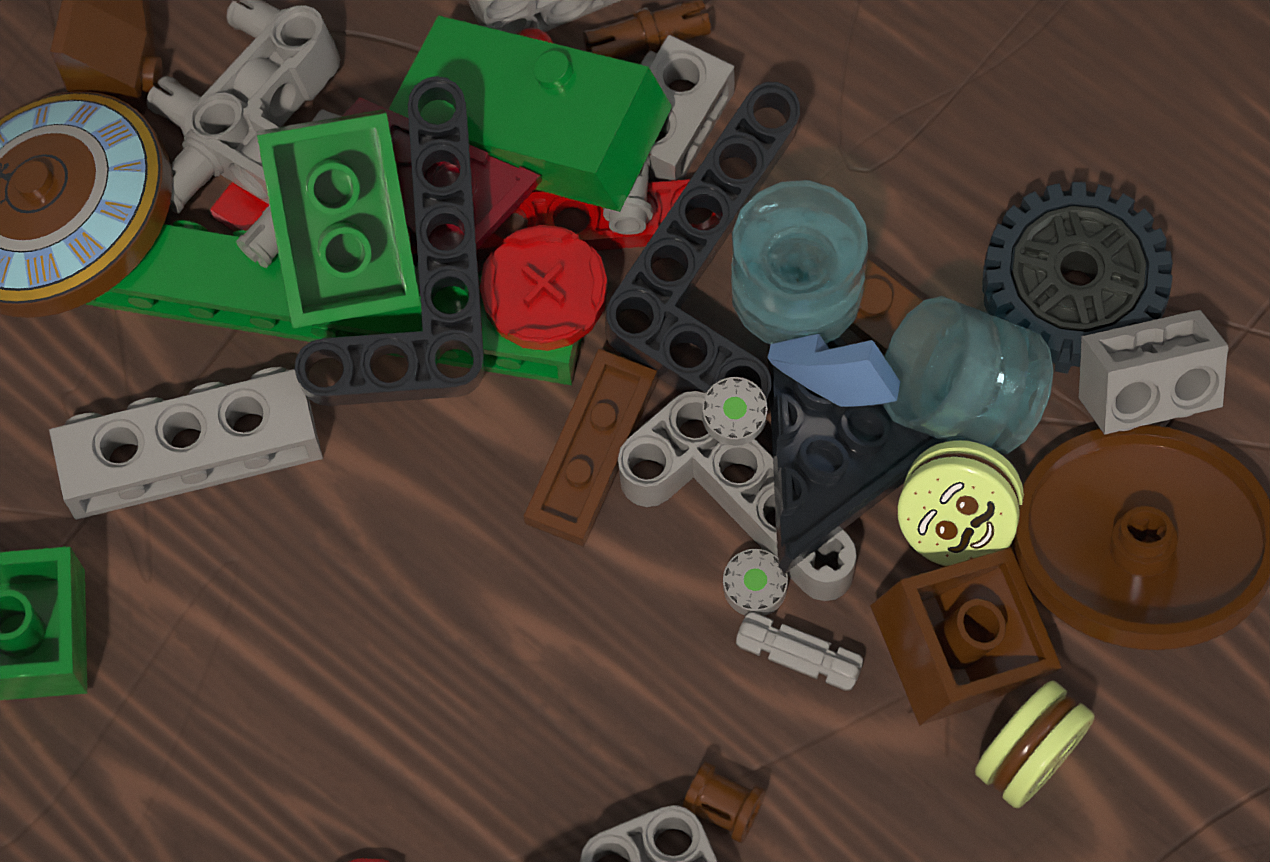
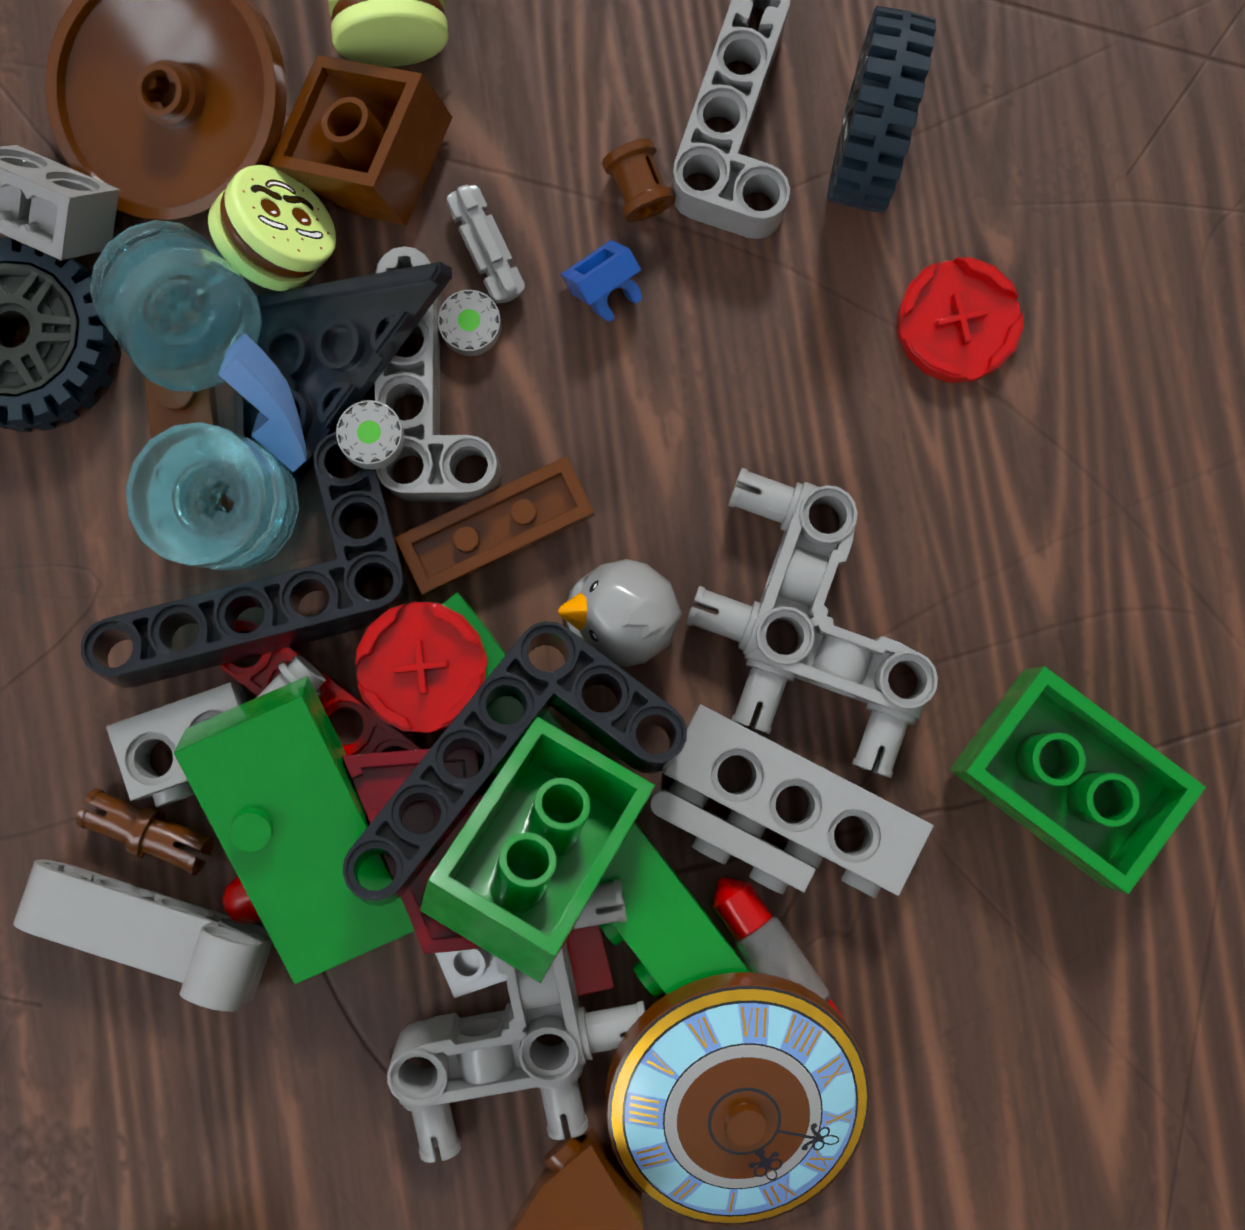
camera: 145 degrees left, 15 degrees up
(117, 330) = (763, 937): none -> piece
(216, 363) = (721, 839): none -> light grey hinge
(250, 567) = (824, 652): none -> light grey pin
(436, 461) = (623, 611): none -> light grey piece
(683, 700) = (600, 274): none -> blue tile

